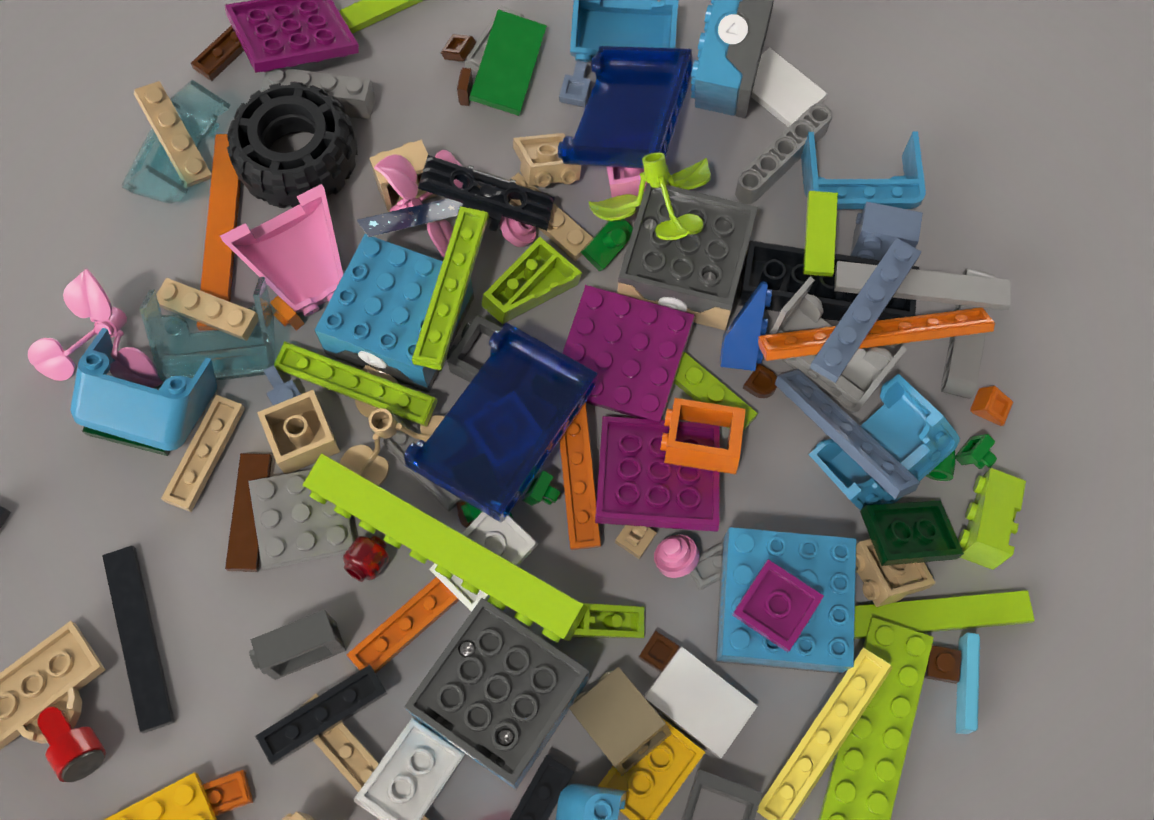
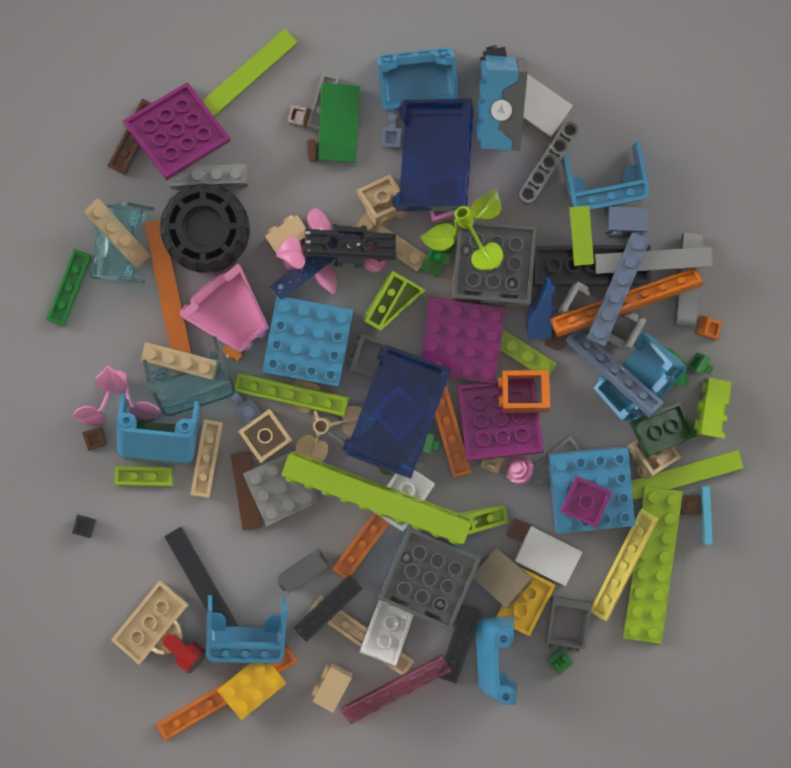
camera: 10 degrees left, 20 degrees up
(51, 397) = (94, 438): none -> reddish brown tile
(87, 197) = (69, 287): none -> green tile
(104, 462) = (143, 476): none -> lime tile
(164, 748) = (246, 643): none -> dark azure windscreen
(365, 558) = (328, 508): dark red head -> none
(450, 288) = (344, 326): lime tile -> none

